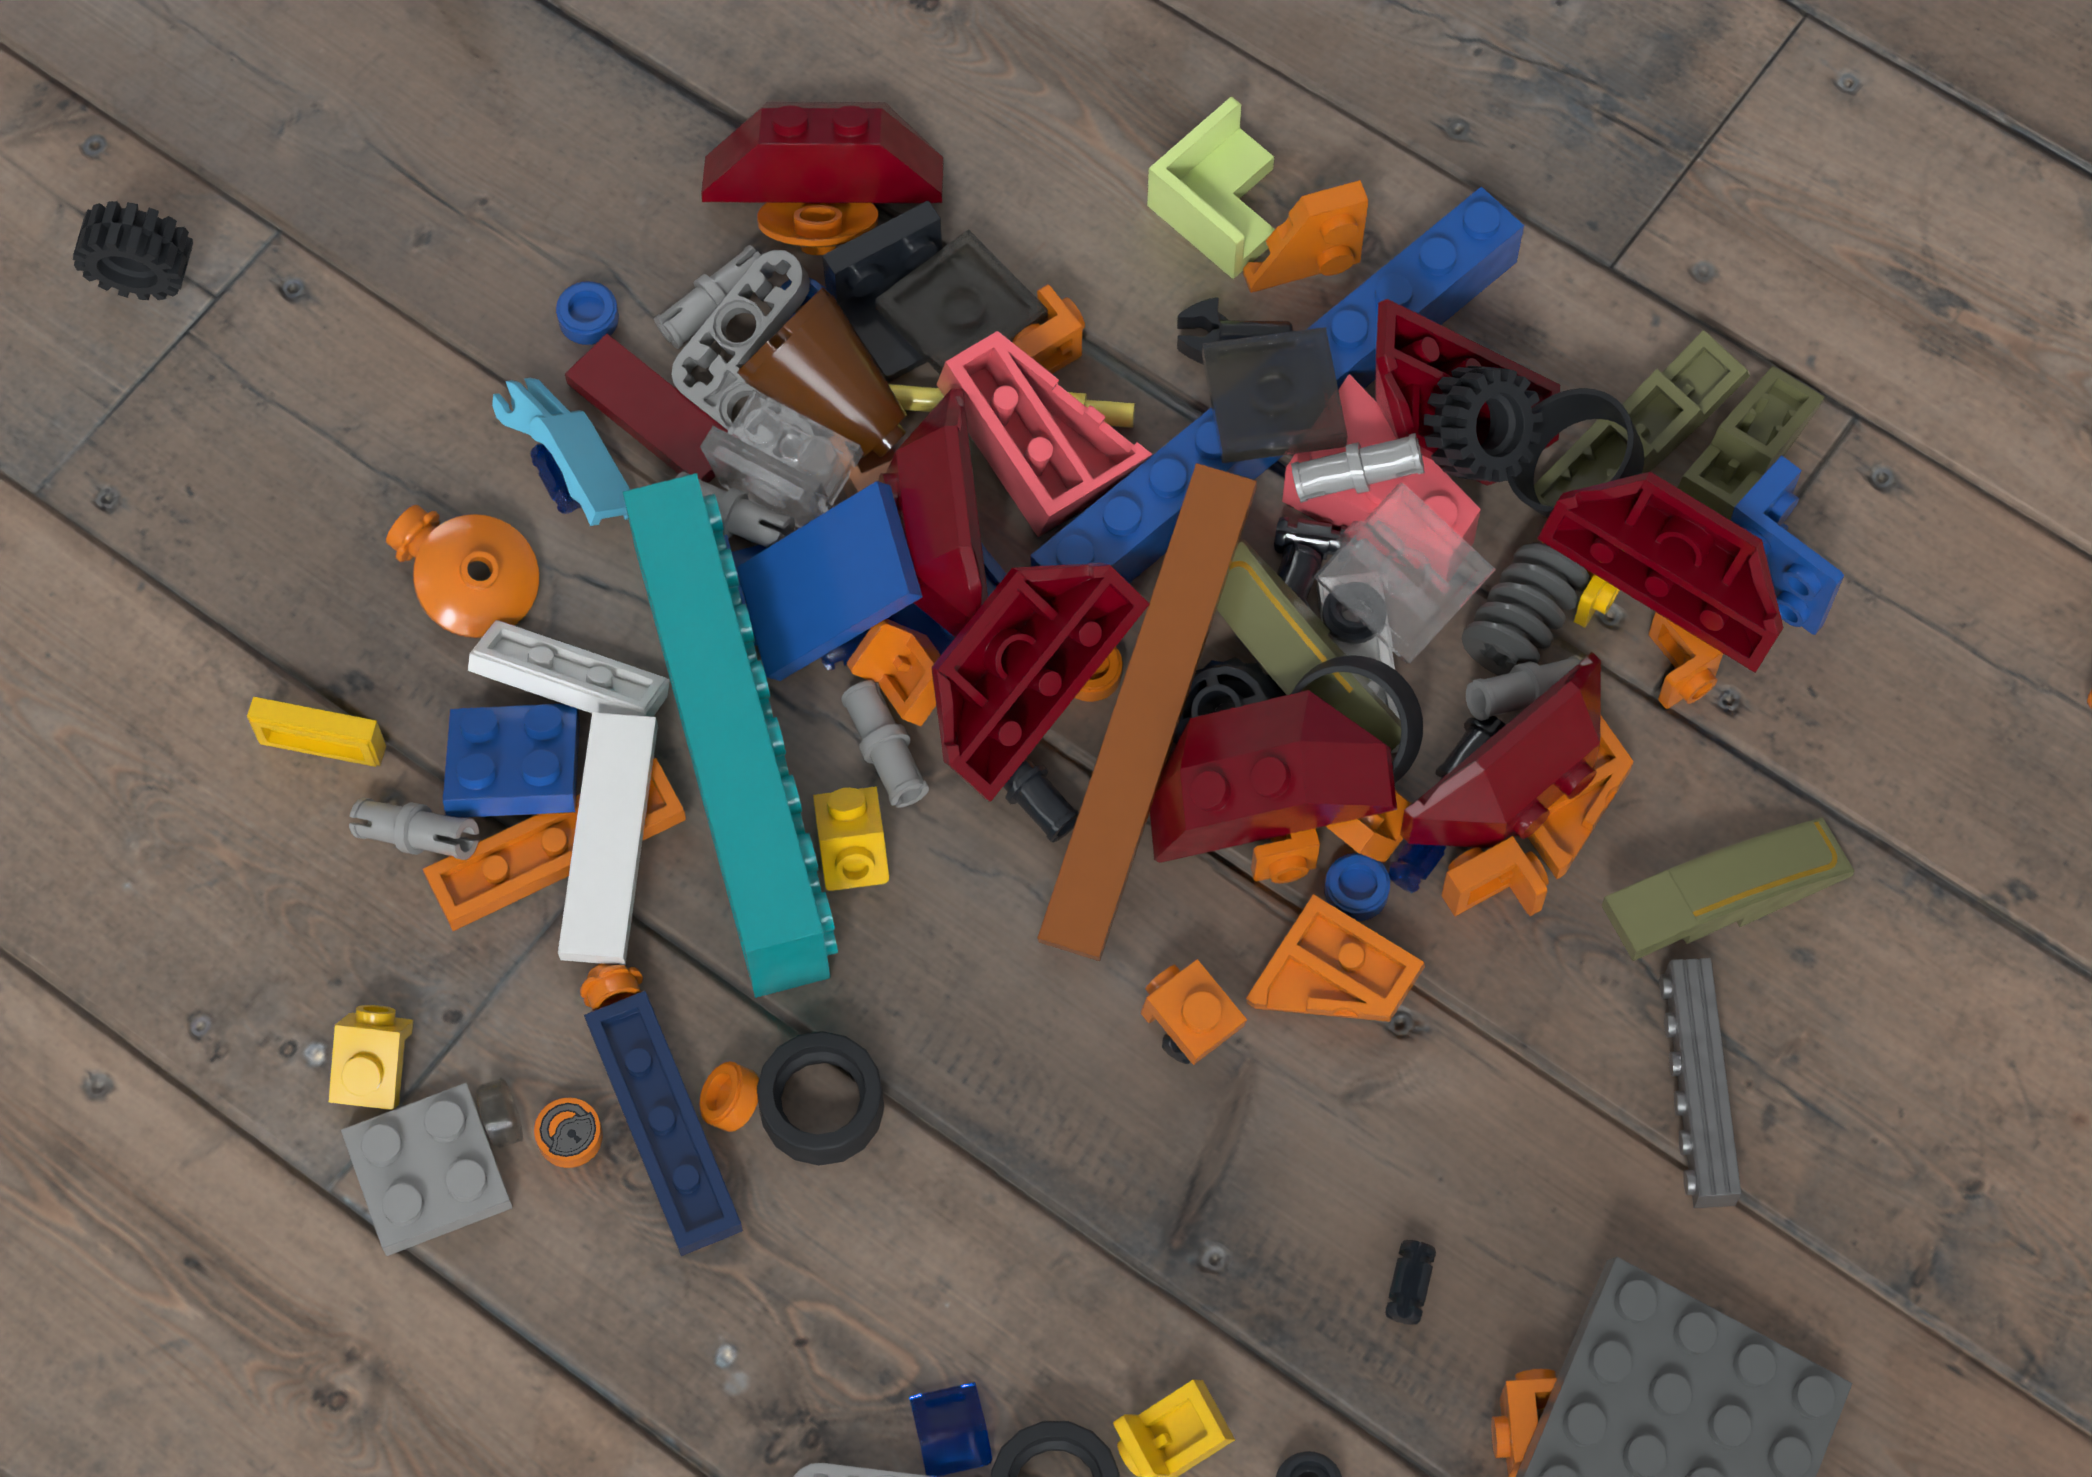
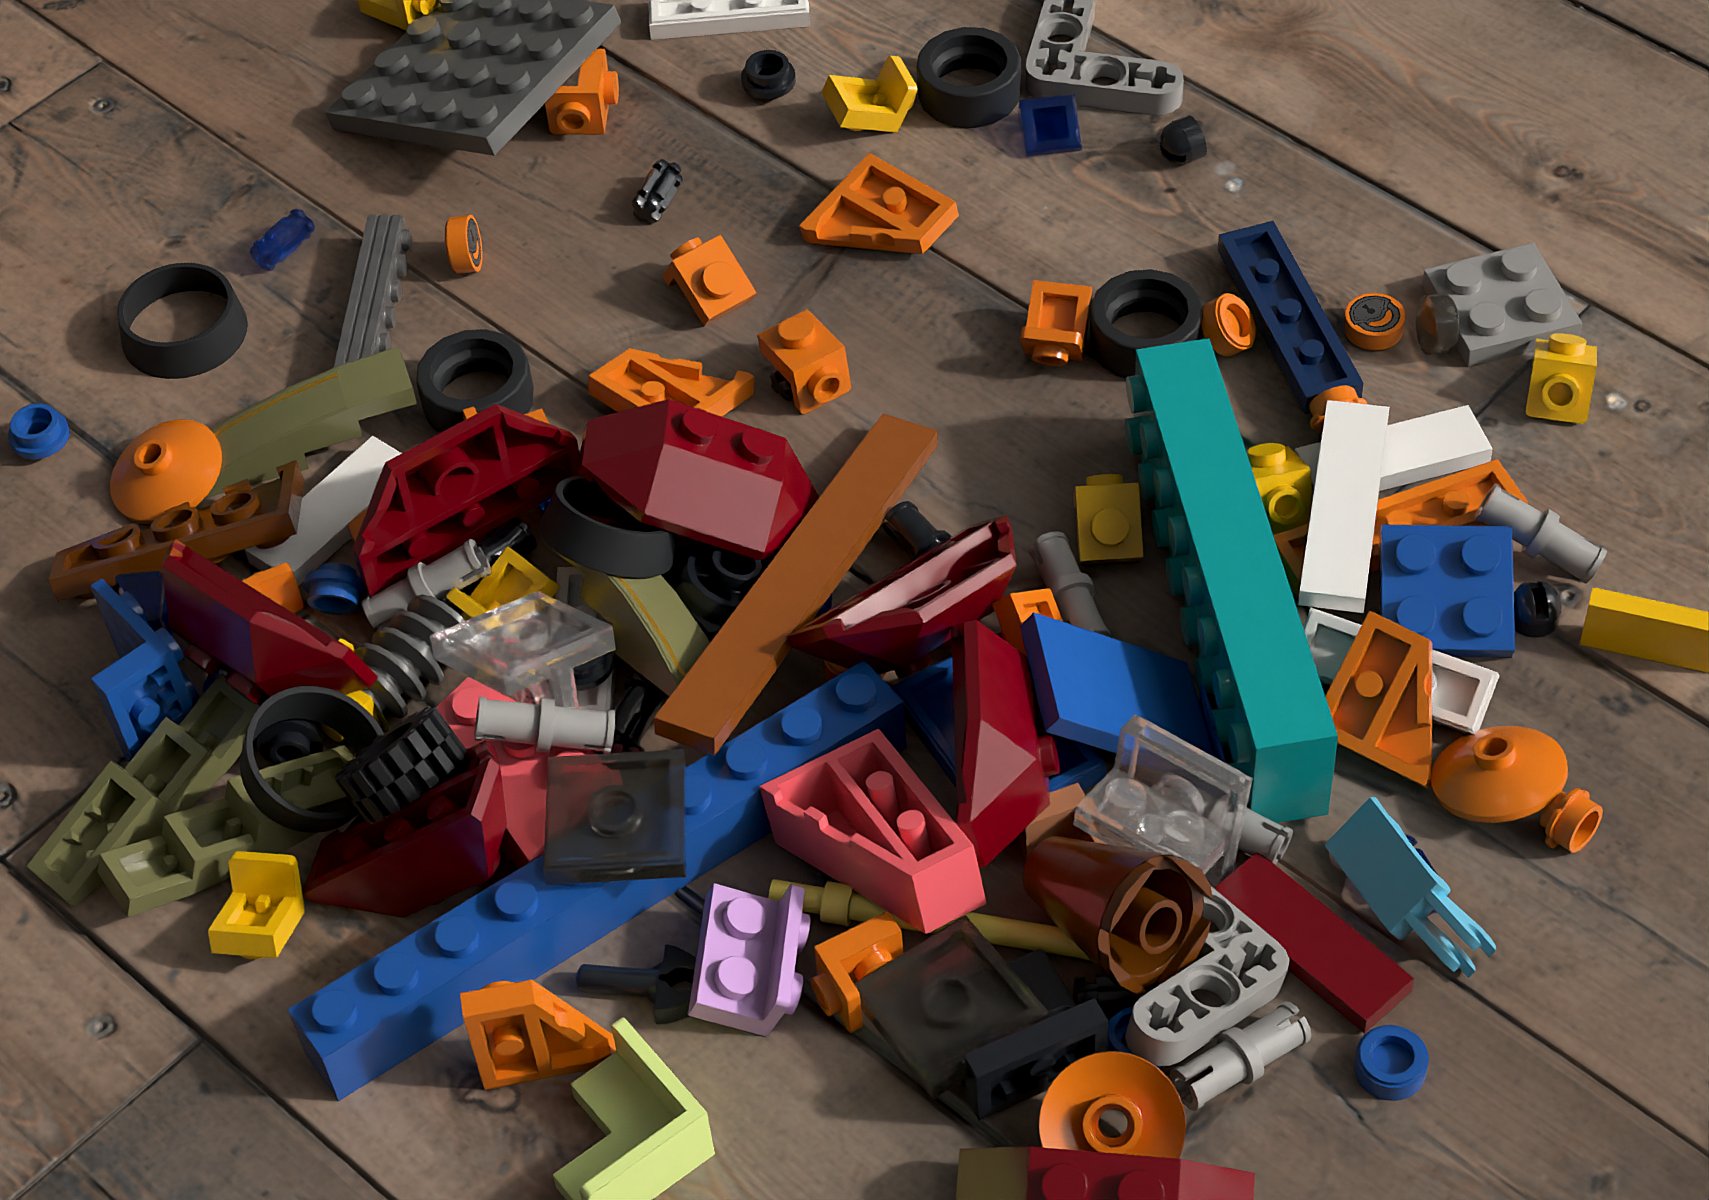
camera: 170 degrees left, 15 degrees down
(411, 770) = (1525, 616): none -> black hinge
(528, 958) = (1423, 448): none -> white tile
(581, 624) = (1385, 699): none -> orange wing
(682, 890) = (1283, 485): none -> yellow bracket
(787, 1392) = (1183, 141): none -> black hinge
(919, 1080) = (1057, 322): none -> orange bracket
(1135, 1255) = (880, 211): none -> orange wing
(1142, 343) = (749, 958): none -> lavender bracket
(1324, 1137) = (709, 278): none -> orange bracket
(1444, 683) = (509, 580): none -> yellow bracket
(1559, 917) = (468, 353): none -> black tyre
(1590, 348) = (261, 908): none -> yellow bracket
(1617, 1167) = (463, 244): none -> orange tile
(1627, 693) = (334, 589): none -> blue plate
(1660, 801) = (328, 511): none -> white tile
(1776, 745) = (232, 523): none -> reddish brown wing
(1806, 652) = (149, 593): none -> clear blue slope
(1838, 1175) = (282, 239): none -> clear blue piece
(1845, 852) = (165, 469): none -> orange dish
(1889, 1098) = (191, 355): none -> black tyre
(2023, 865) = (38, 431): none -> blue plate

